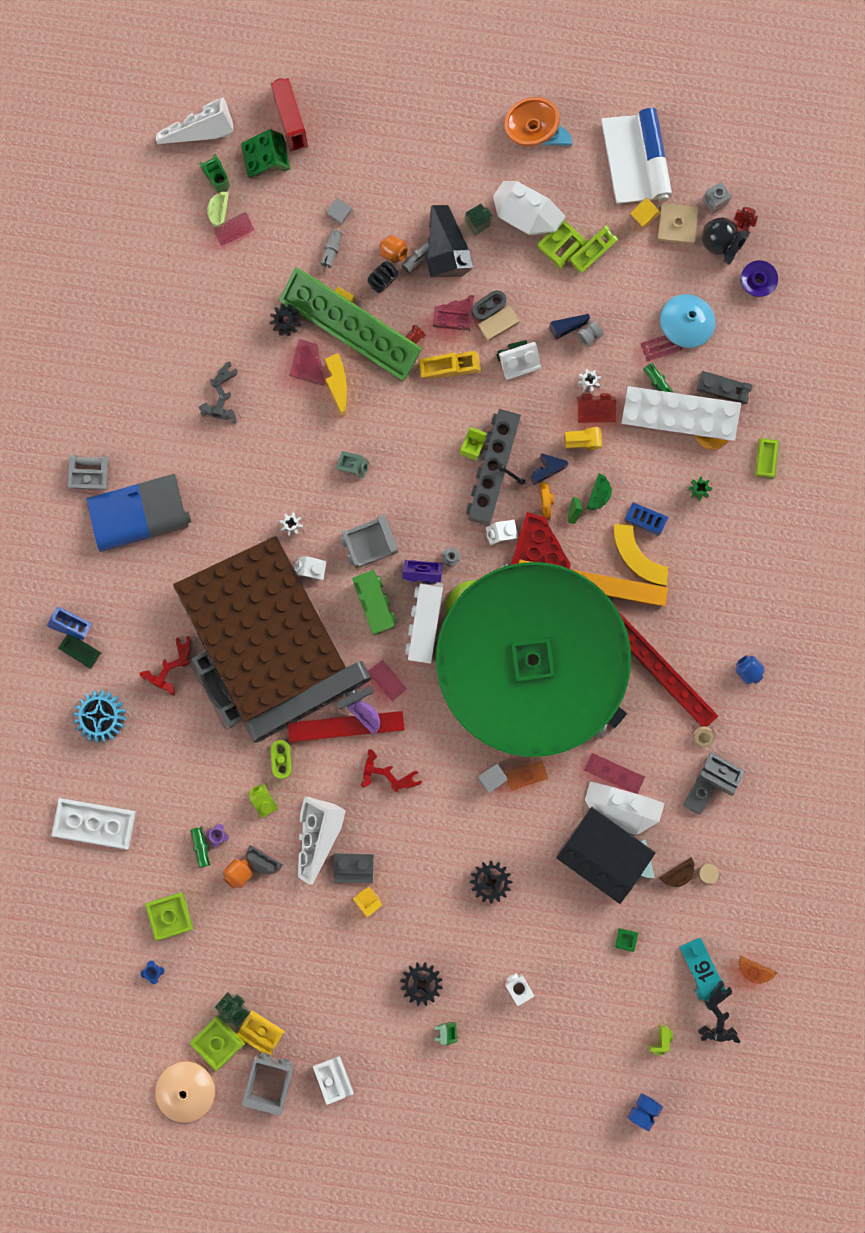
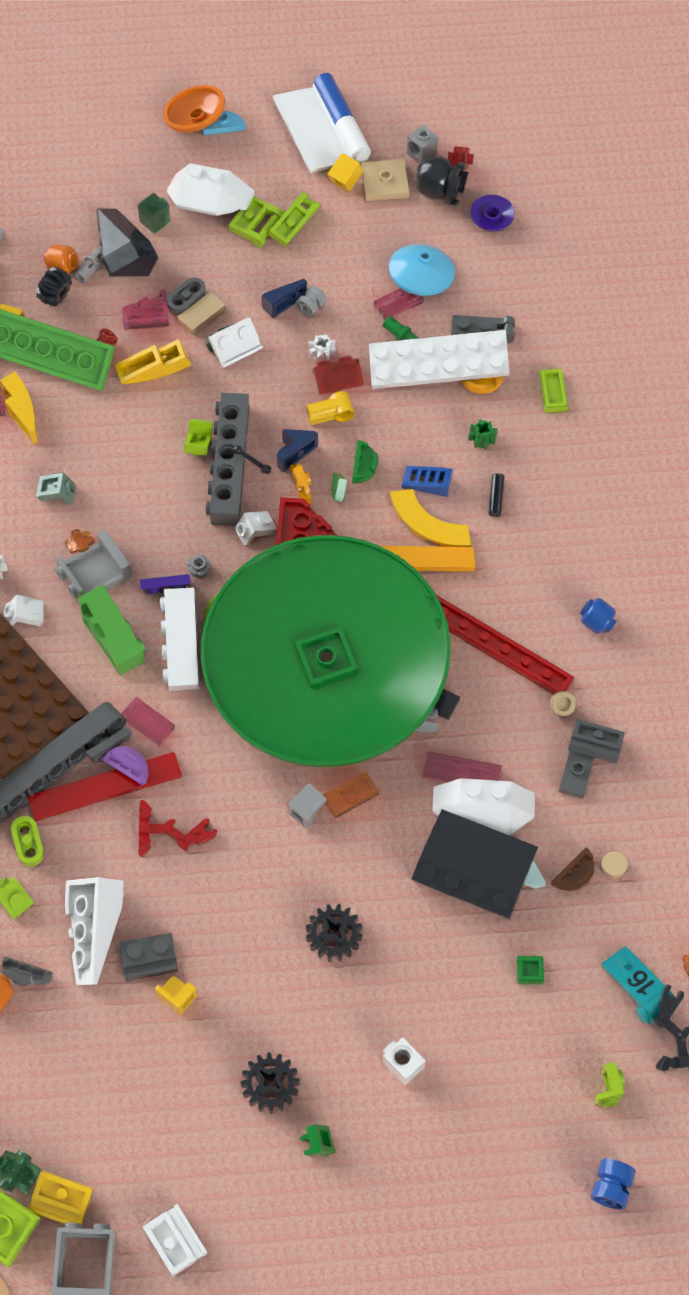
camera: 10 degrees left, 20 degrees down
(362, 515) = (79, 541): none -> clear orange plant
(697, 544) = (496, 495): none -> black axle

